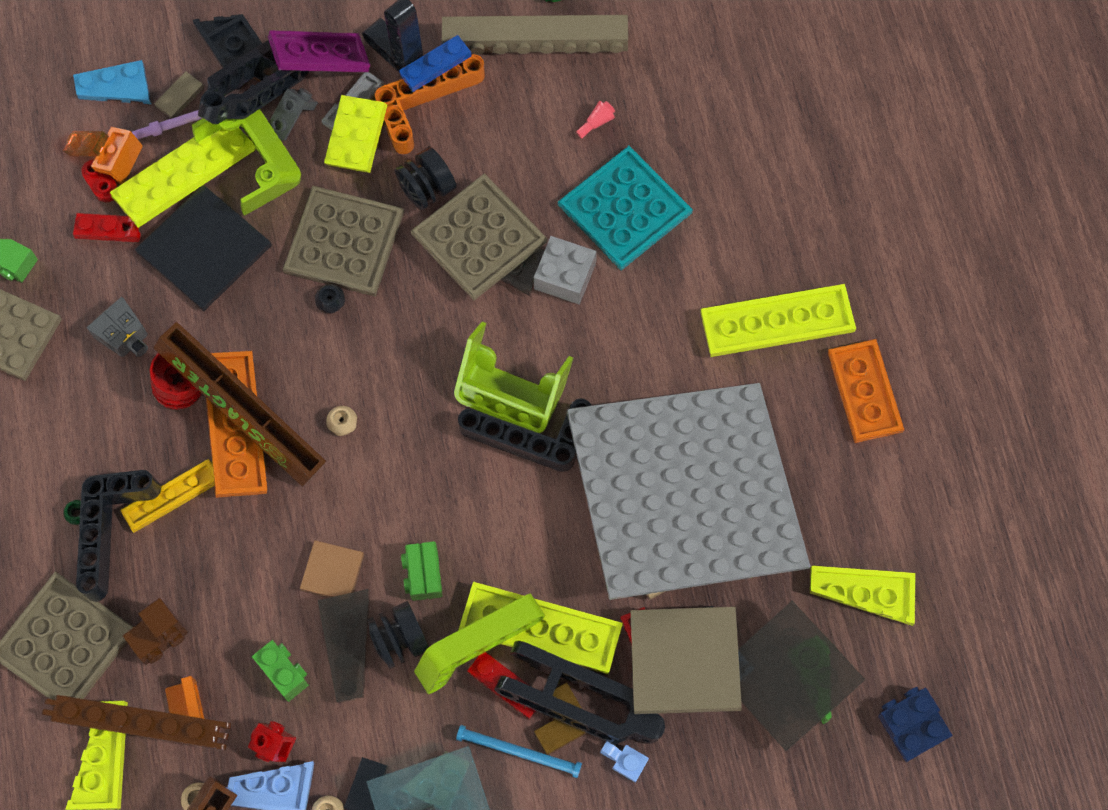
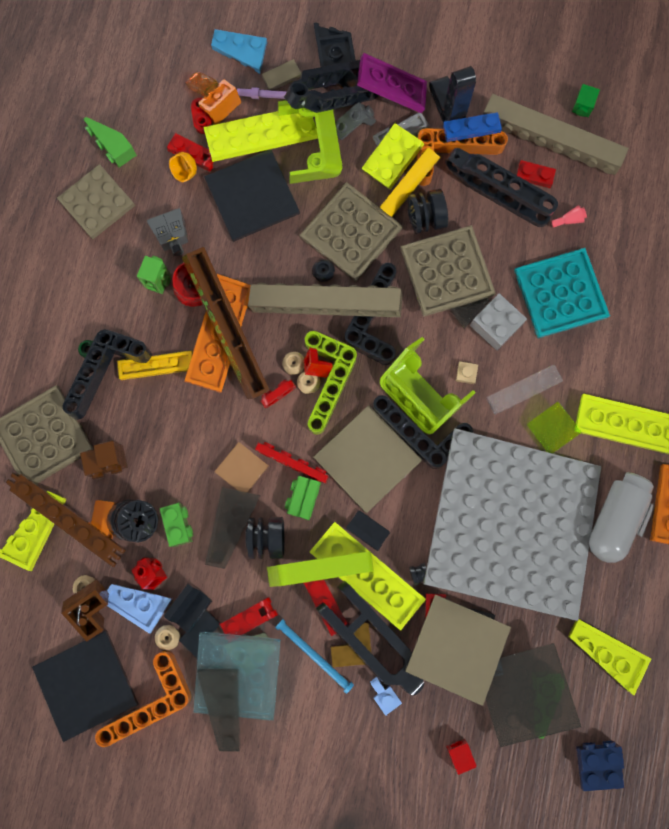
camera: 25 degrees right, 10 degrees up
(104, 248) = (183, 166): none -> light orange hair
(124, 387) = (154, 274): none -> bright green brick
(224, 685) = (121, 520): none -> black wheel
(338, 762) = (188, 607): none -> black panel
(342, 455) = (272, 397): none -> red plate
(347, 329) = (326, 300): none -> dark tan brick
(369, 442) = (306, 387): none -> tan plate
(370, 411) = (314, 366): none -> red panel
(381, 535) = (285, 459): none -> red plate
(389, 154) = (410, 182): none -> yellow brick
(398, 418) = (333, 380): none -> lime beam
(407, 326) = (361, 330): none -> black beam
(420, 741) = (249, 618): none -> red plate
(480, 493) = (367, 459): none -> dark tan tile
(518, 576) = (368, 530): none -> black panel
(534, 86) = (536, 174): none -> red plate
(535, 117) = (527, 200): none -> black piece
(554, 344) = (466, 372): none -> tan plate
(600, 598) = (418, 573): none -> black wheel
(631, 334) = (524, 389): none -> clear tile
(684, 362) = (554, 428): none -> clear neon green tile
(746, 786) = (461, 756): none -> red panel
(808, 427) = (622, 518): none -> light grey piece

